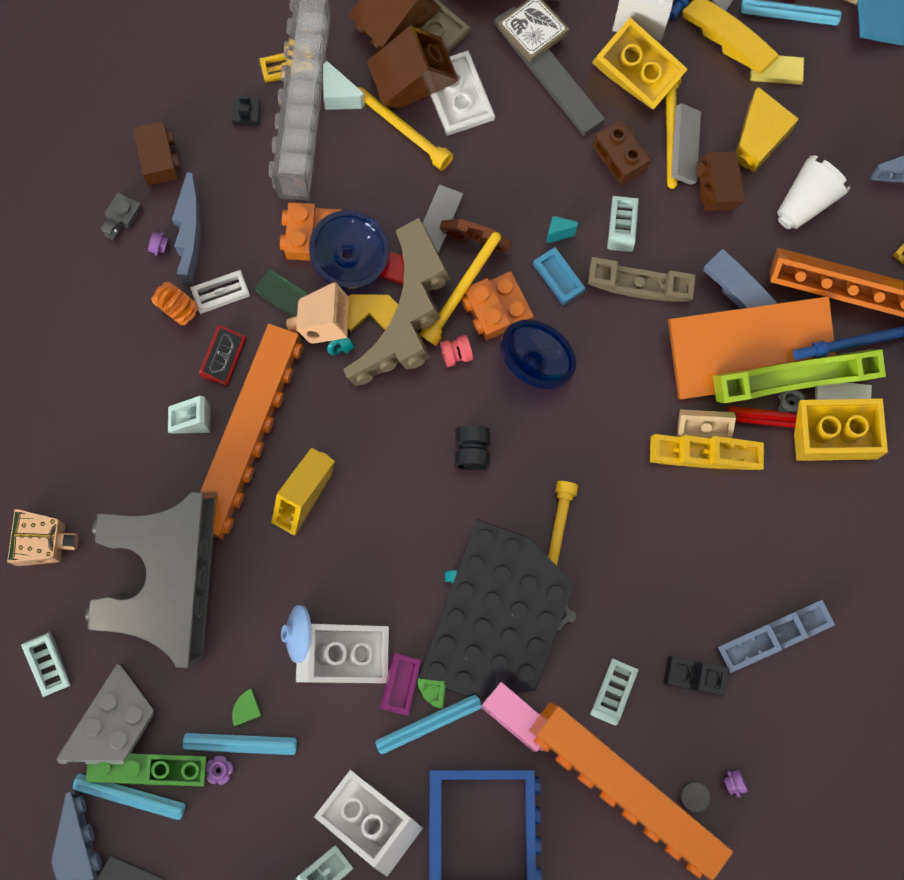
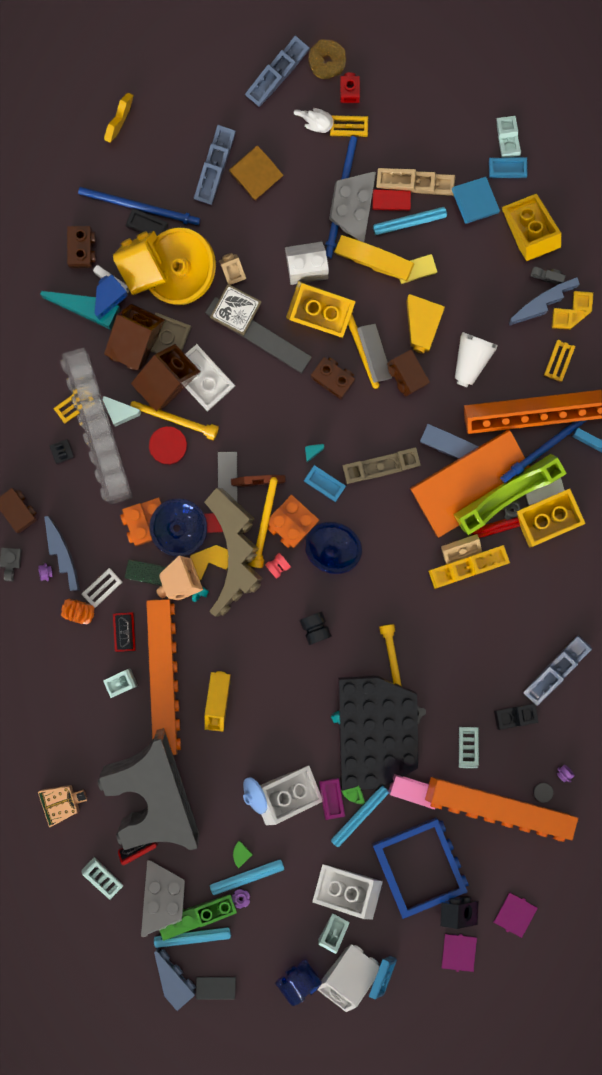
camera: 20 degrees left, 10 degrees up
(109, 644) = (133, 853): none -> slope
(380, 154) = (167, 445): none -> red tile
(623, 239) = (356, 443): light aqua slope -> none

